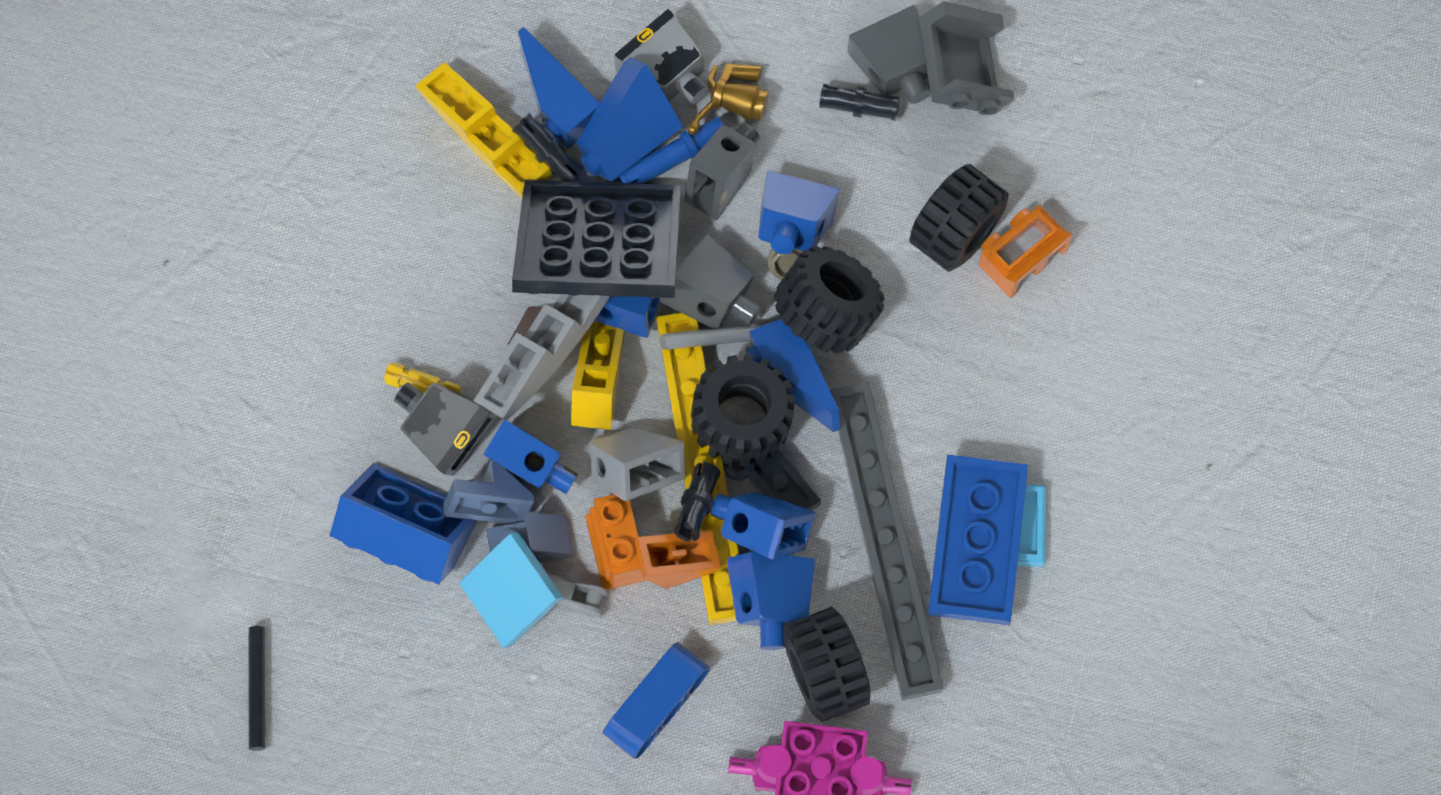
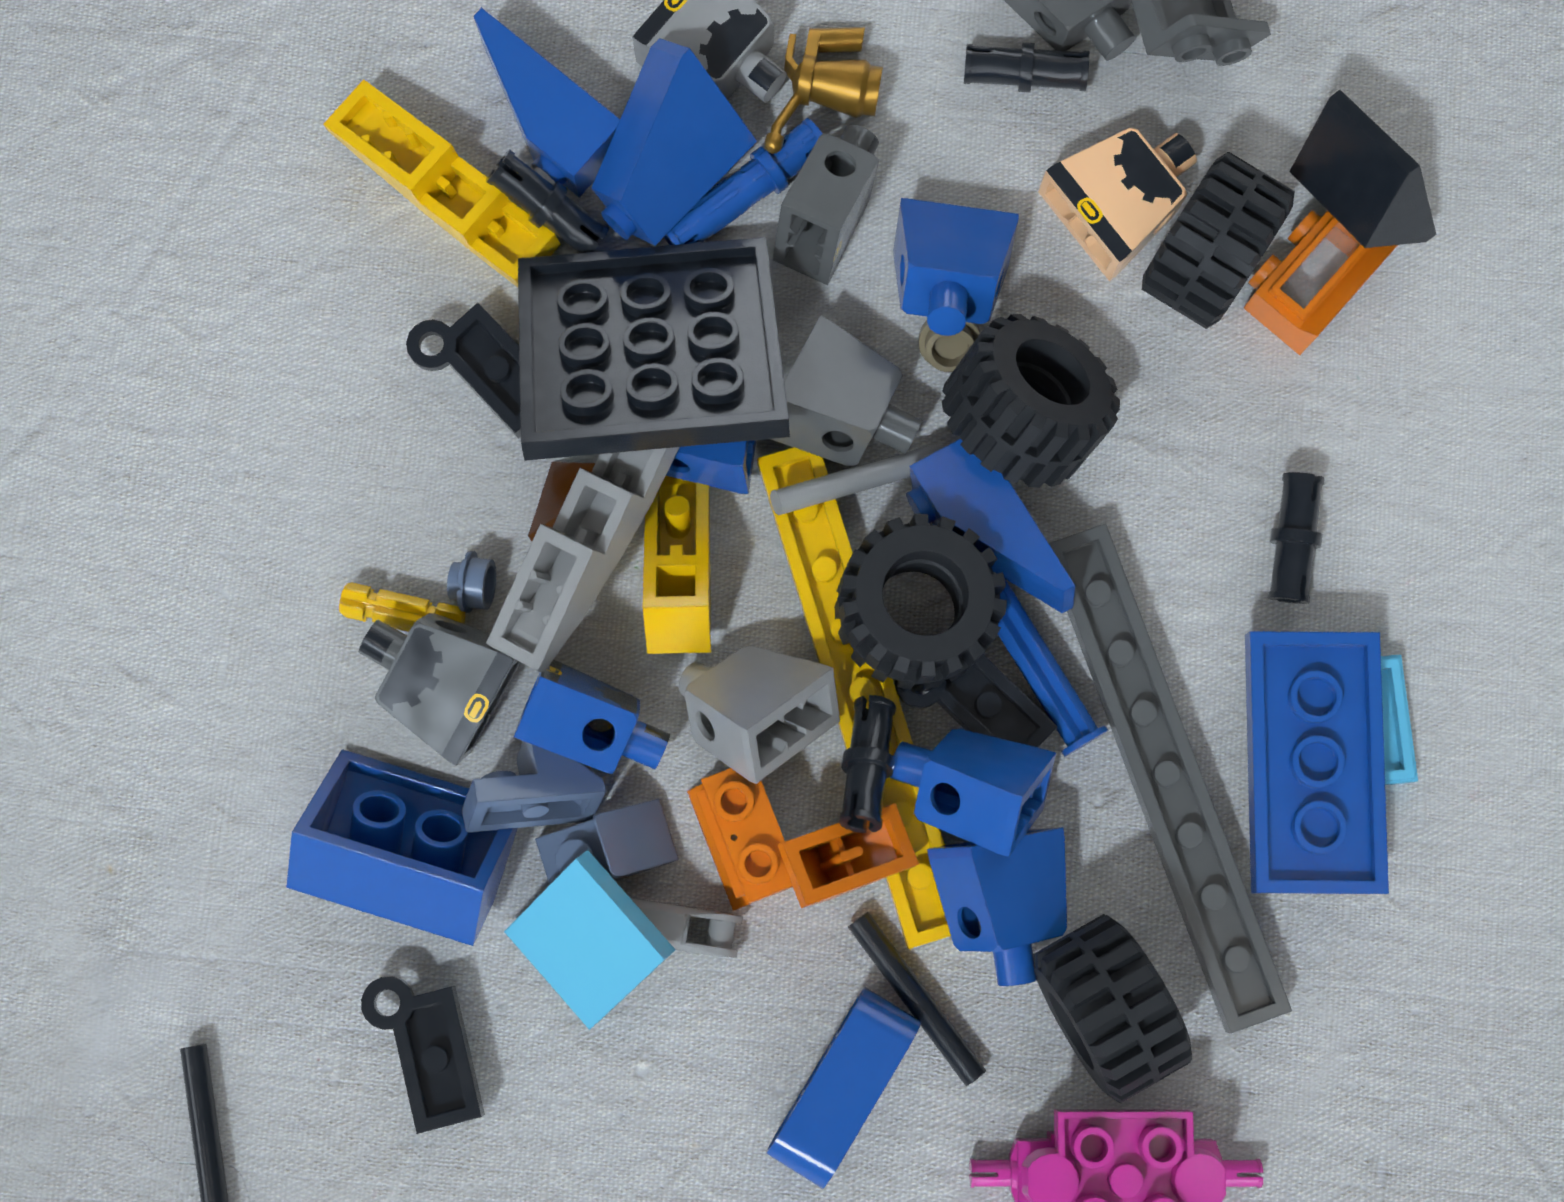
camera: 10 degrees left, 10 degrees up
(403, 647) = (430, 1051): none -> black hinge
(468, 371) = (472, 582): none -> sand blue plate
(492, 235) = (481, 357): none -> black hinge
(710, 656) = (917, 999): none -> black bar
(817, 468) = (1046, 676): none -> blue axle
(903, 184) = (1118, 194): none -> light nougat torso
(988, 406) = (1296, 538): none -> black pin
(1055, 192) = (1364, 177): none -> black slope

